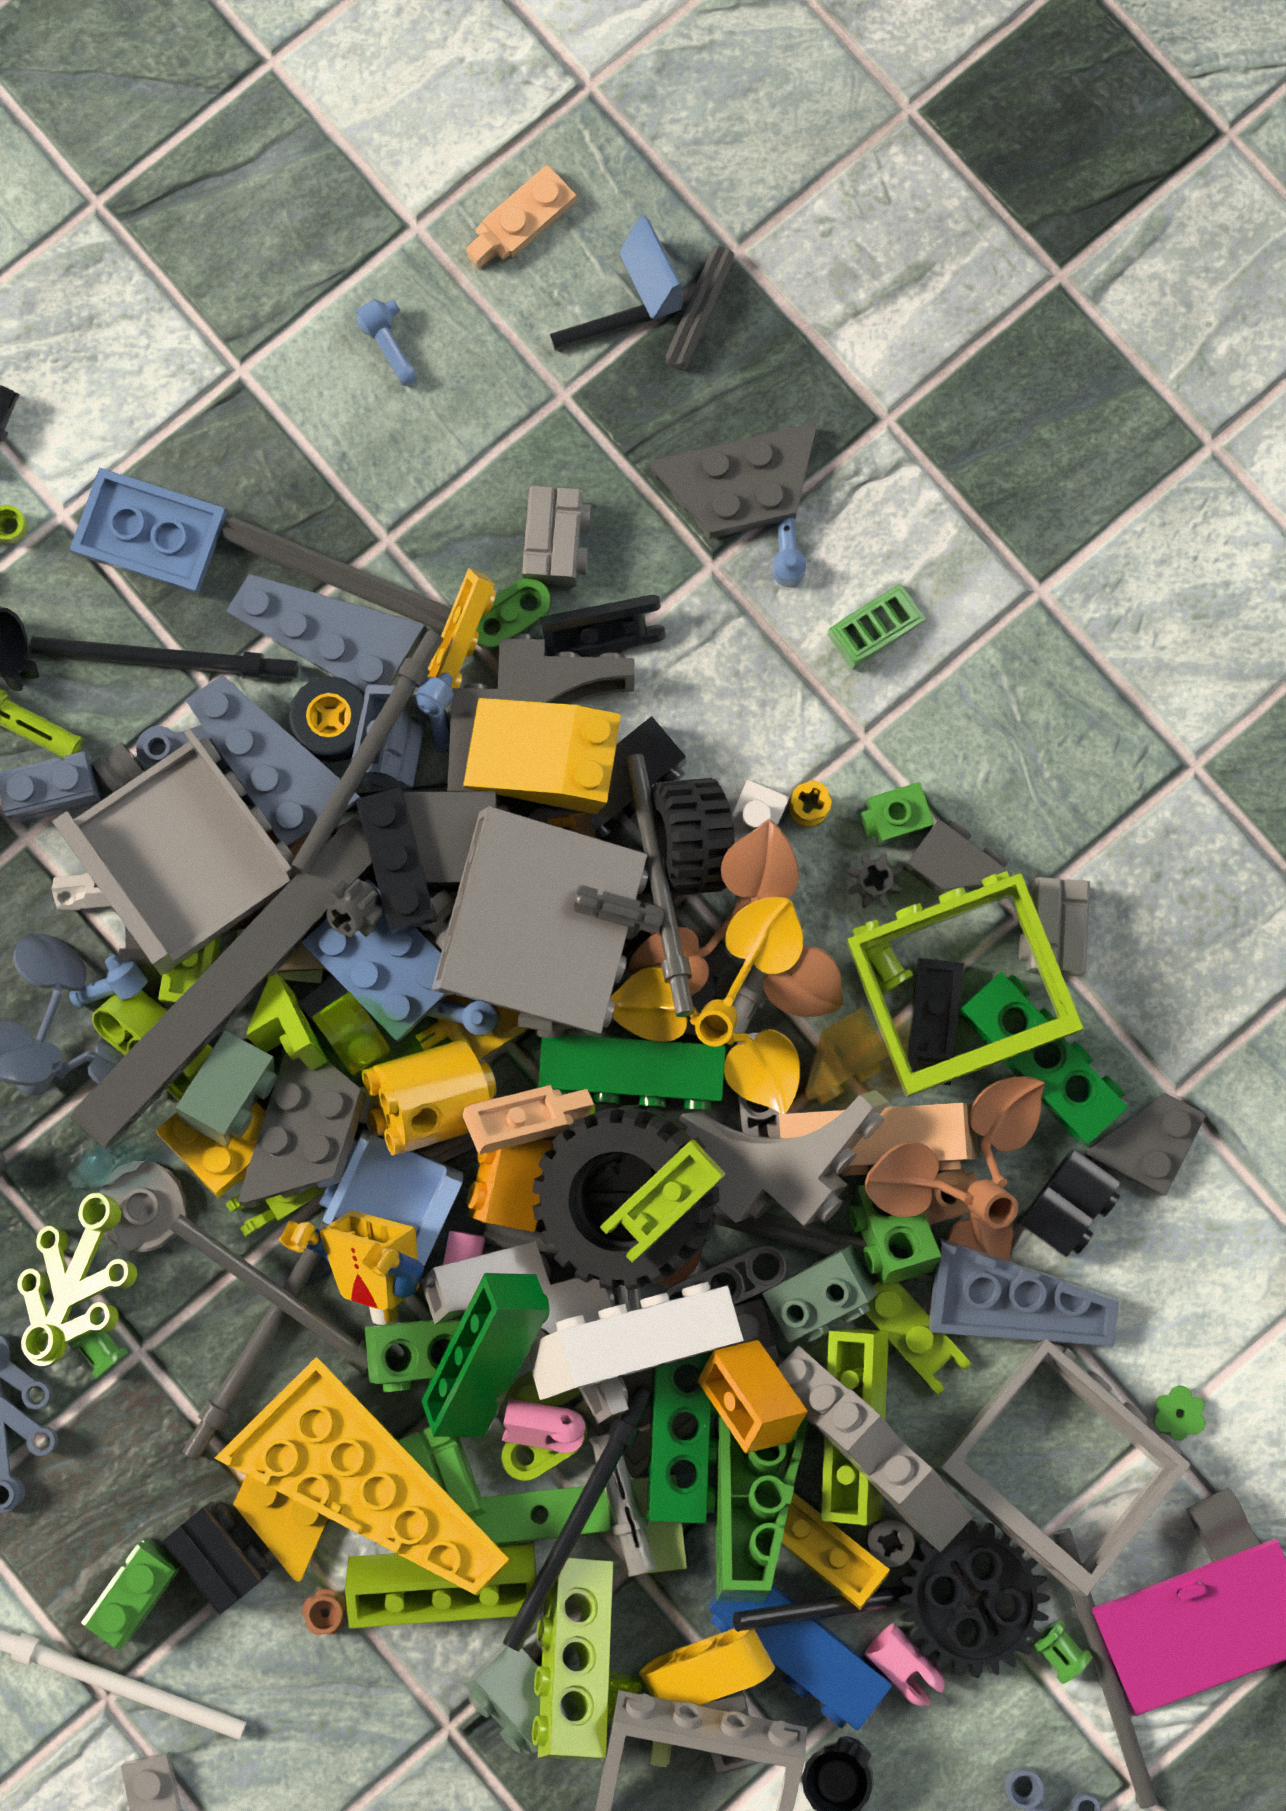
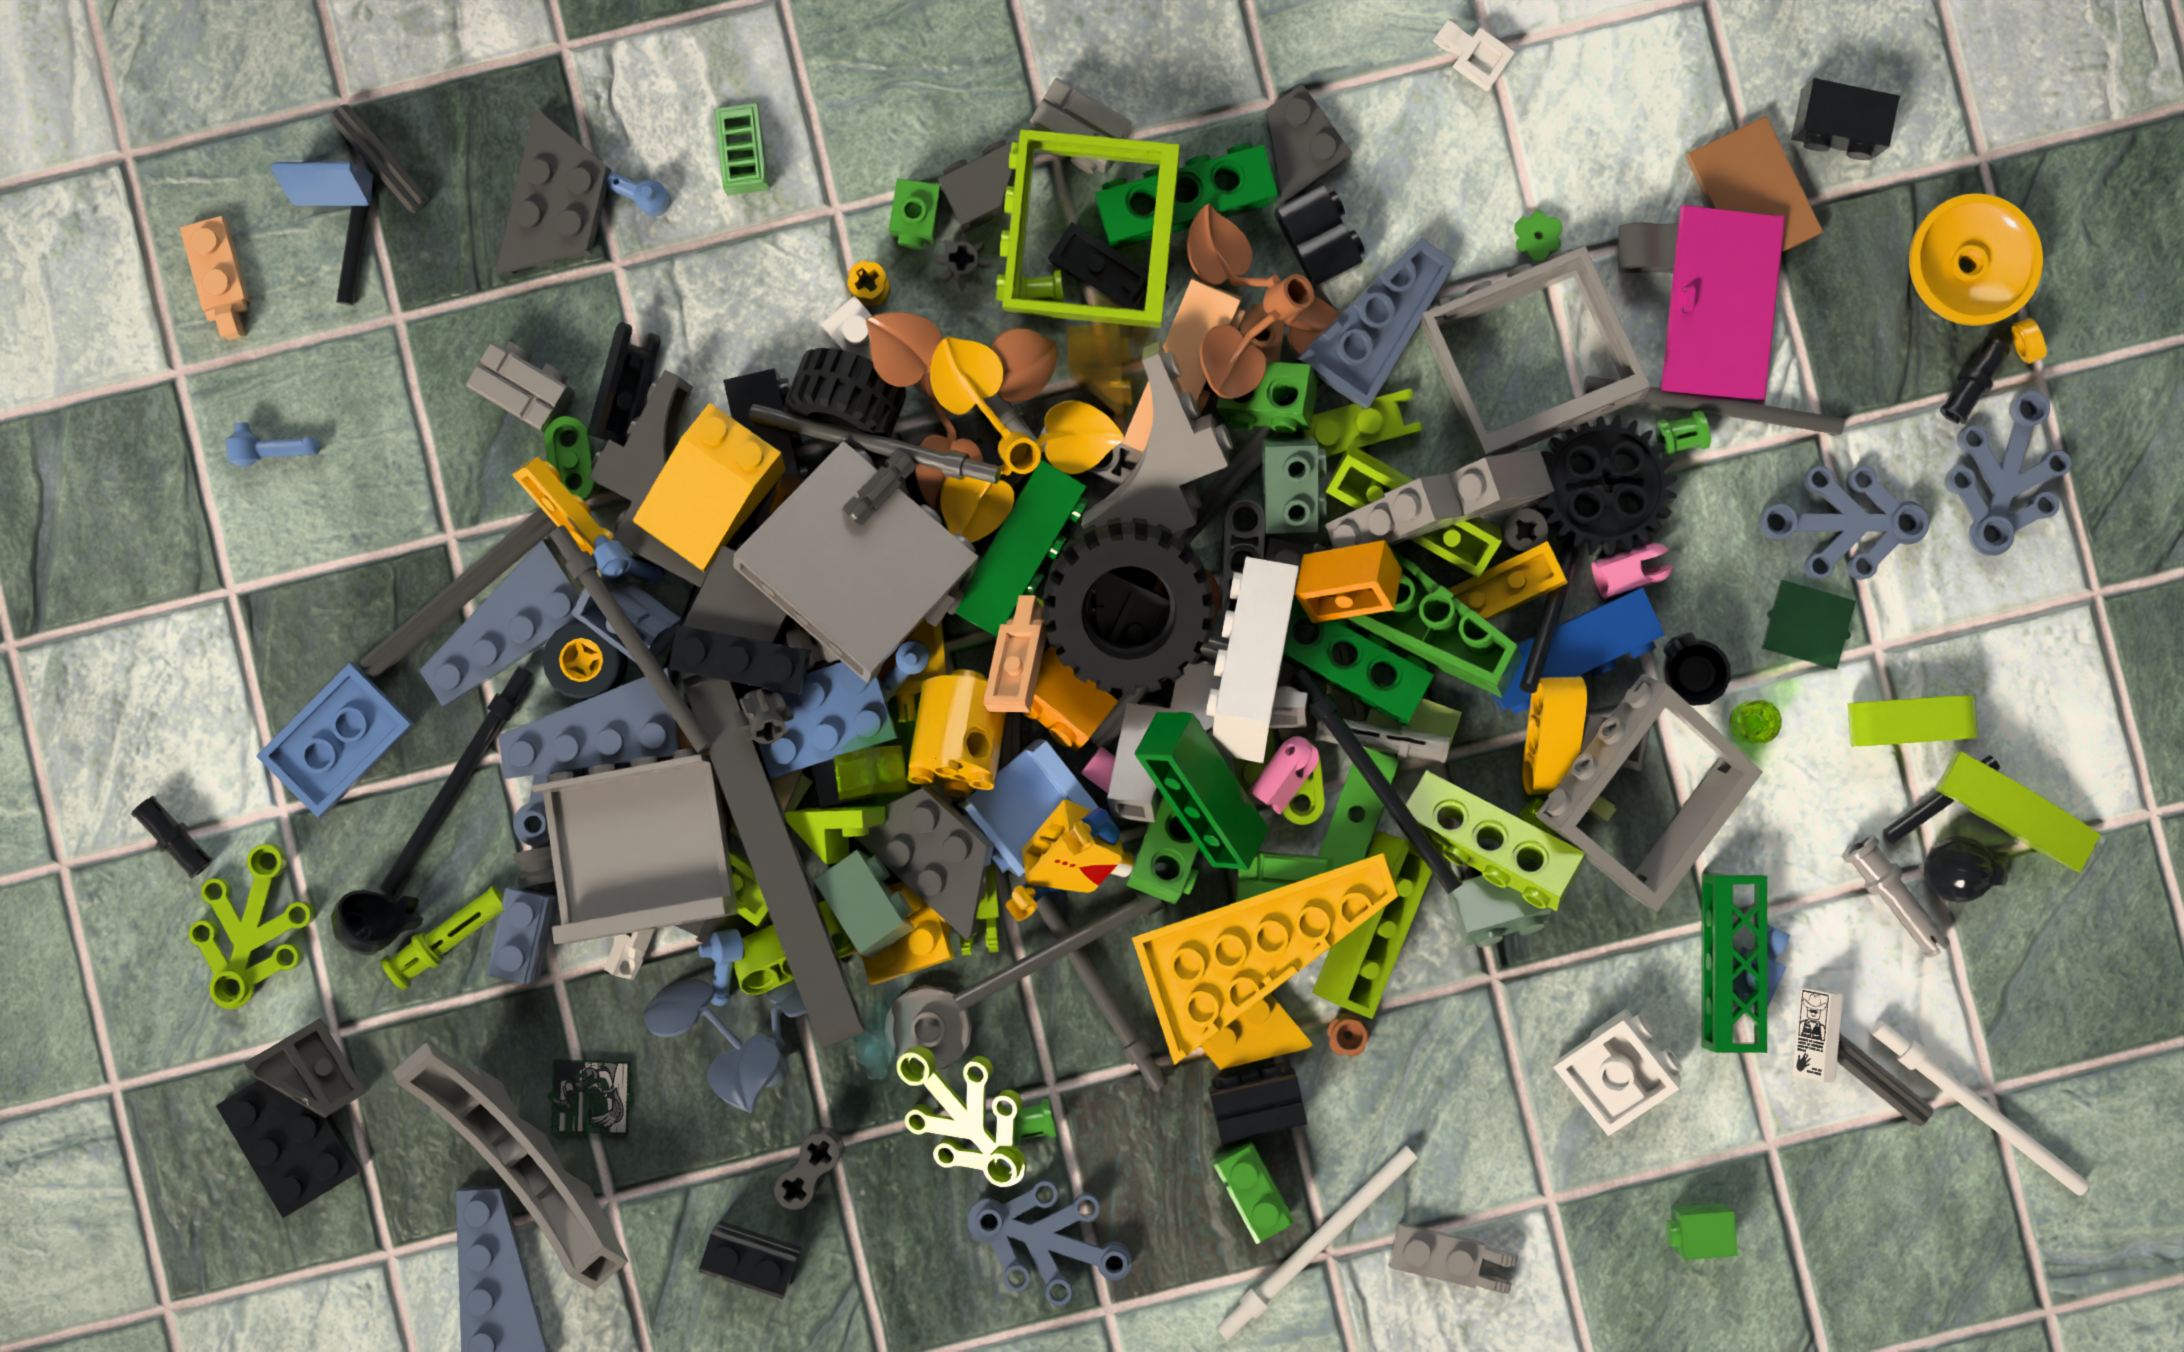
camera: 65 degrees left, 5 degrees up
(666, 1197) = (1147, 567): lime hinge -> none

